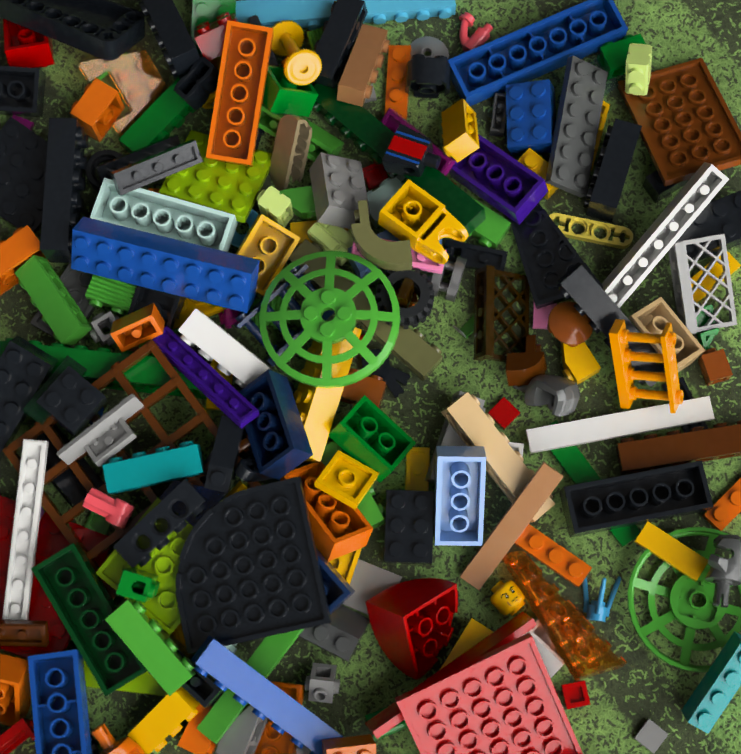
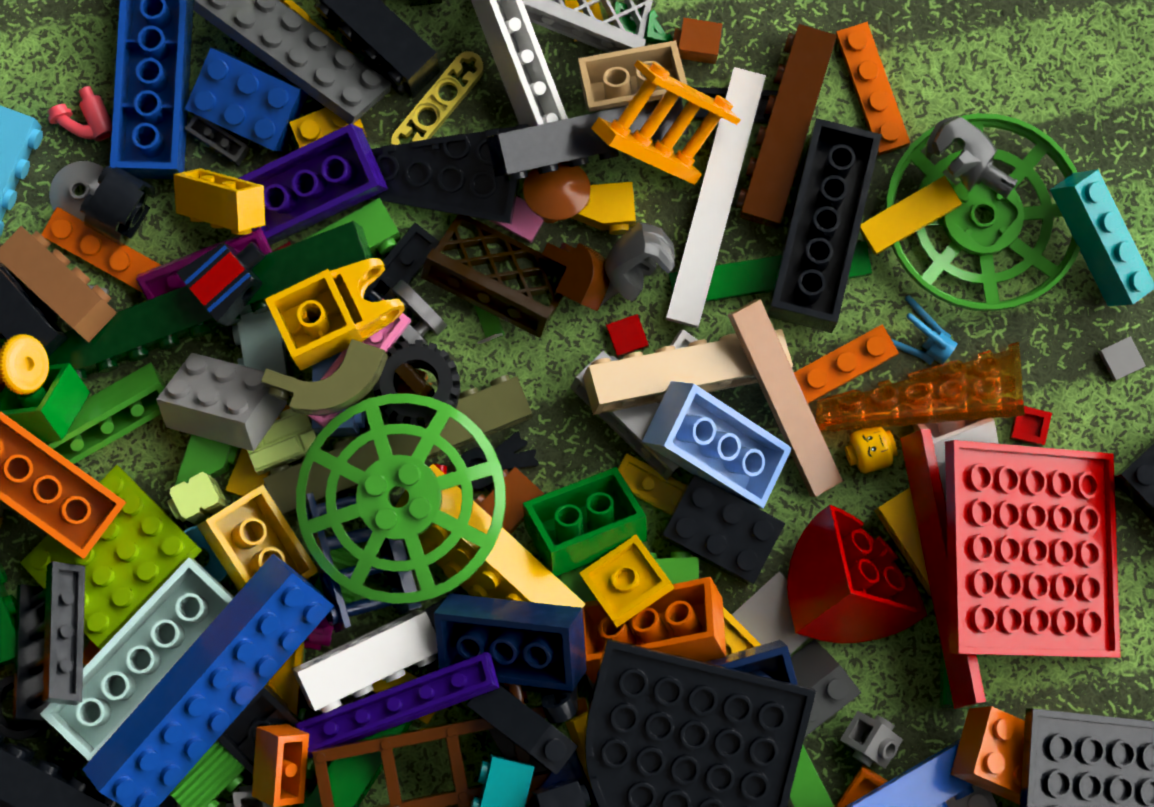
camera: 70 degrees left, 5 degrees up
(290, 150) = (129, 441): dark tan brick -> none
(374, 175) = (217, 344): red tile -> none

